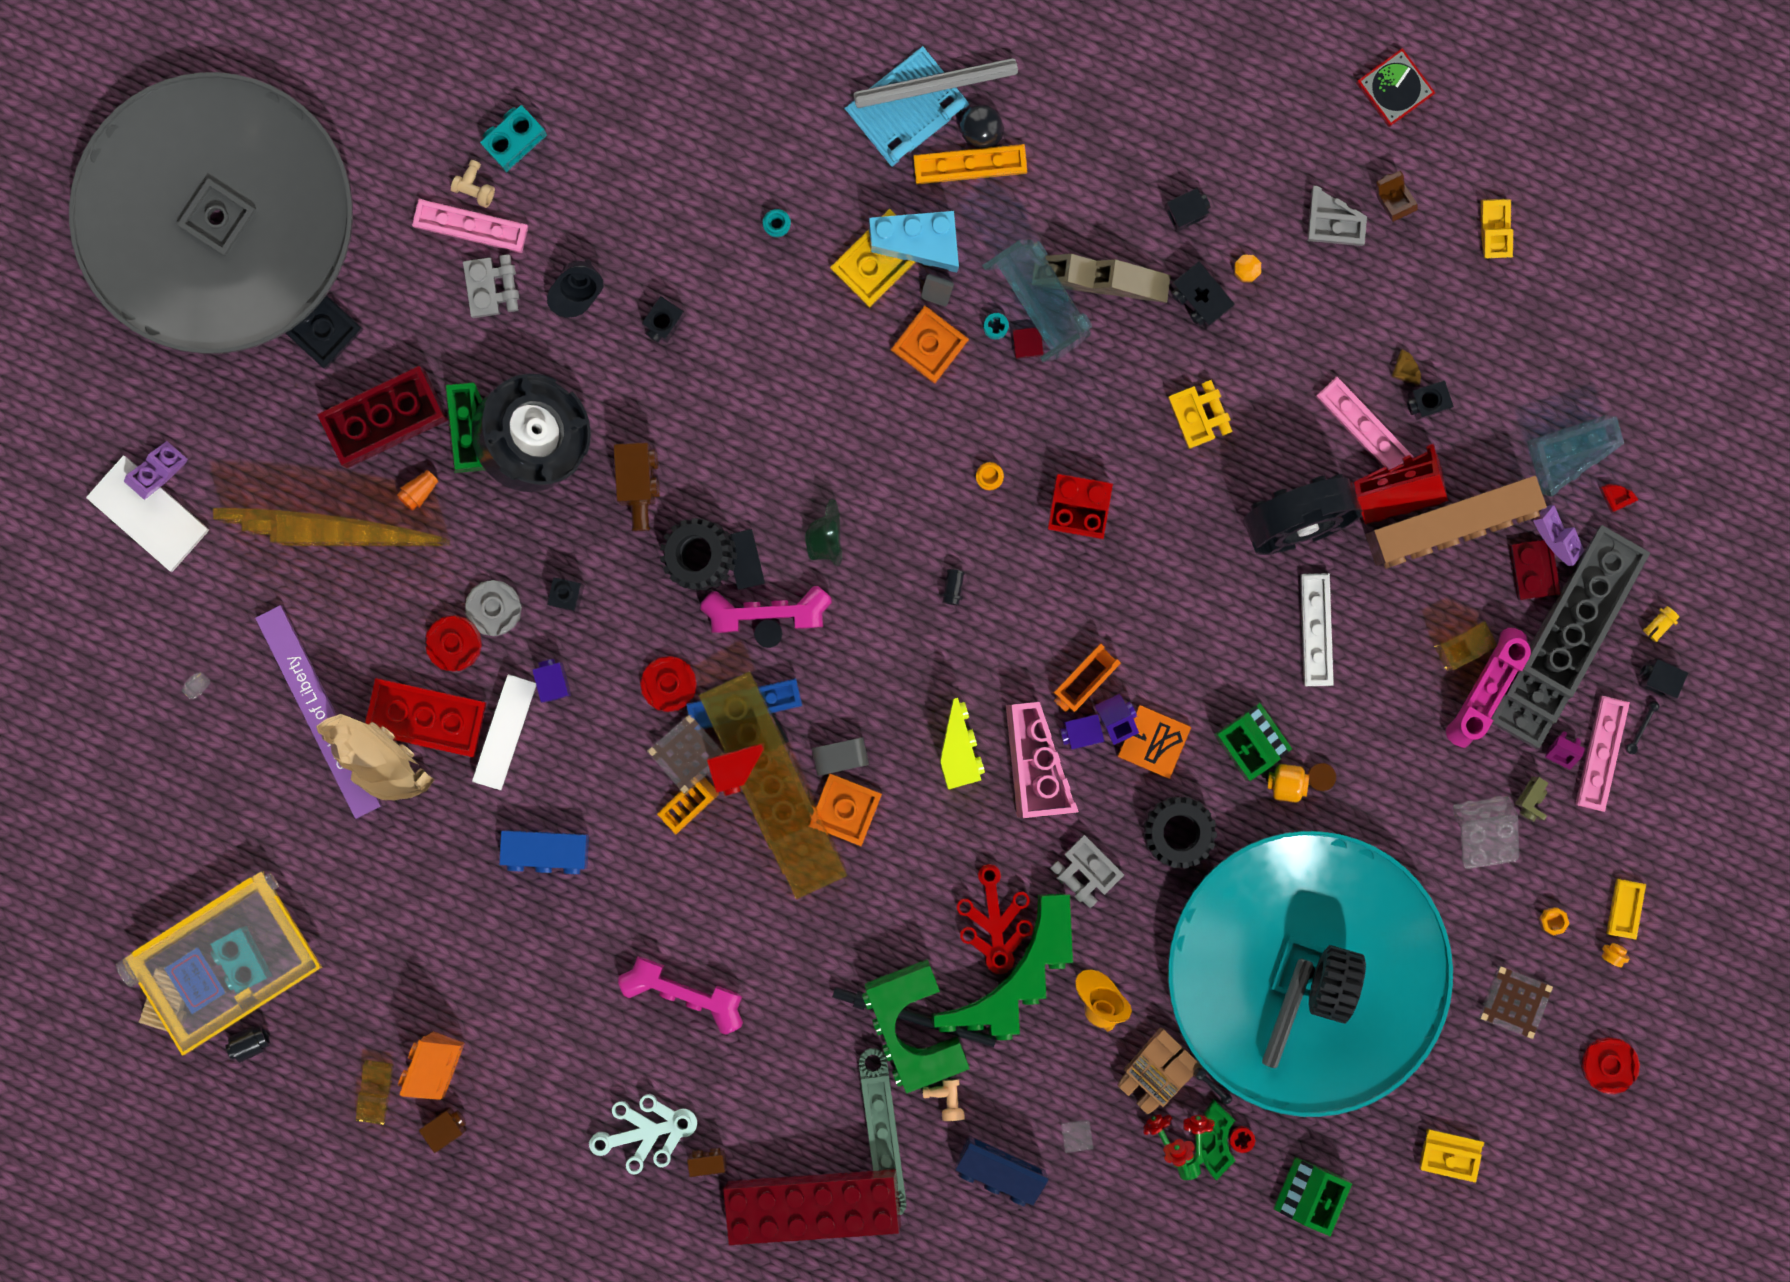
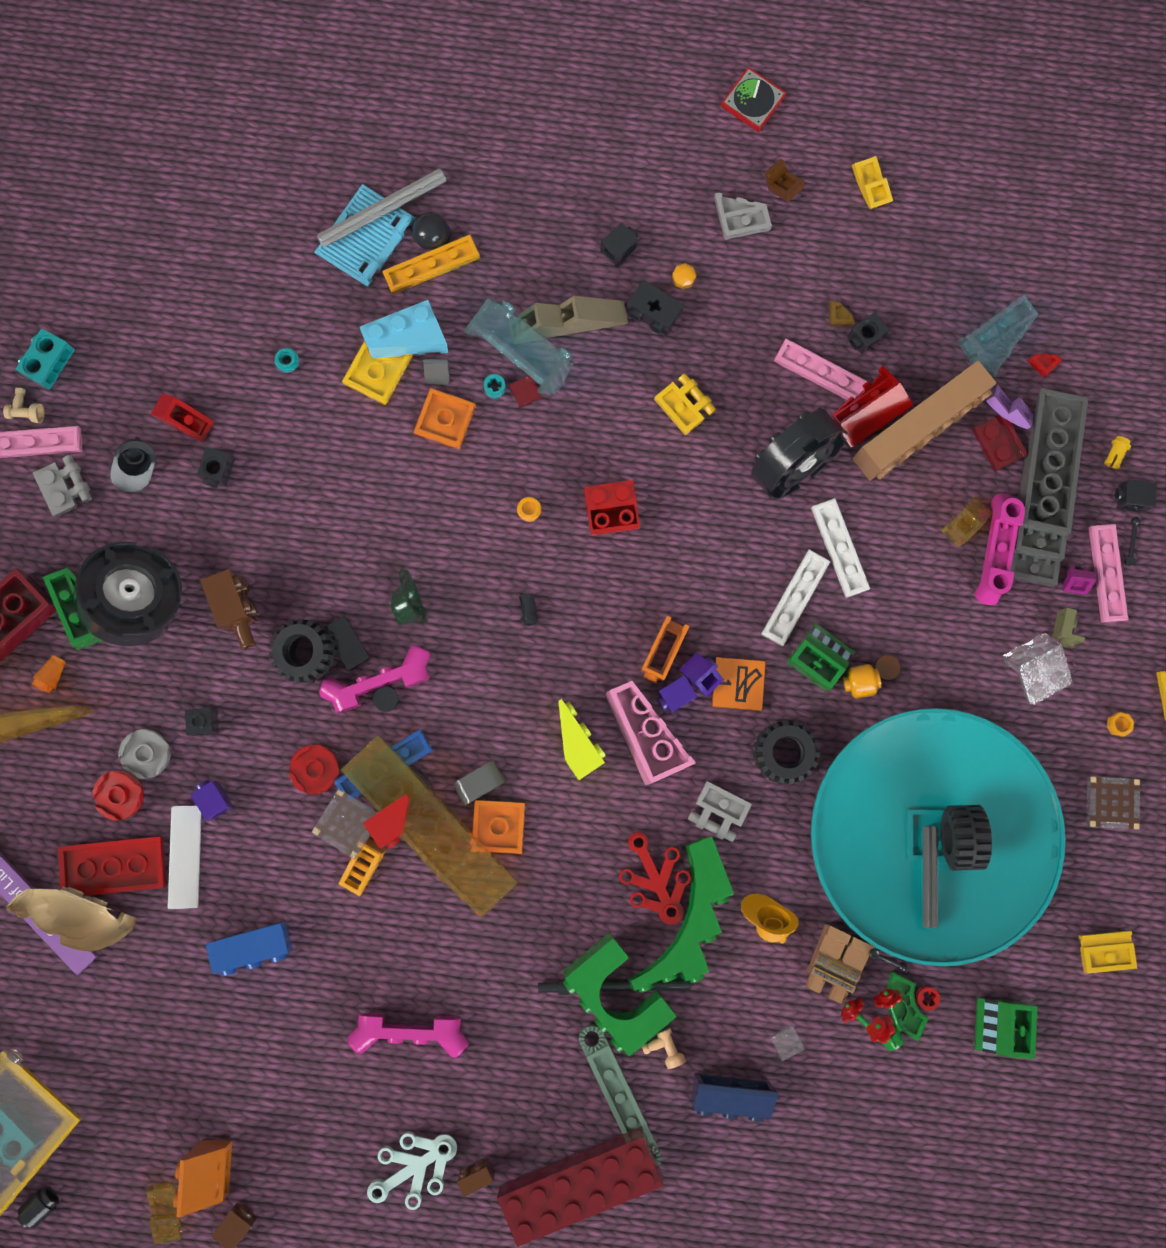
camera: 20 degrees left, 5 degrees down
(643, 252) = (182, 417): none -> red slope
(1248, 668) = (795, 597): none -> white tile

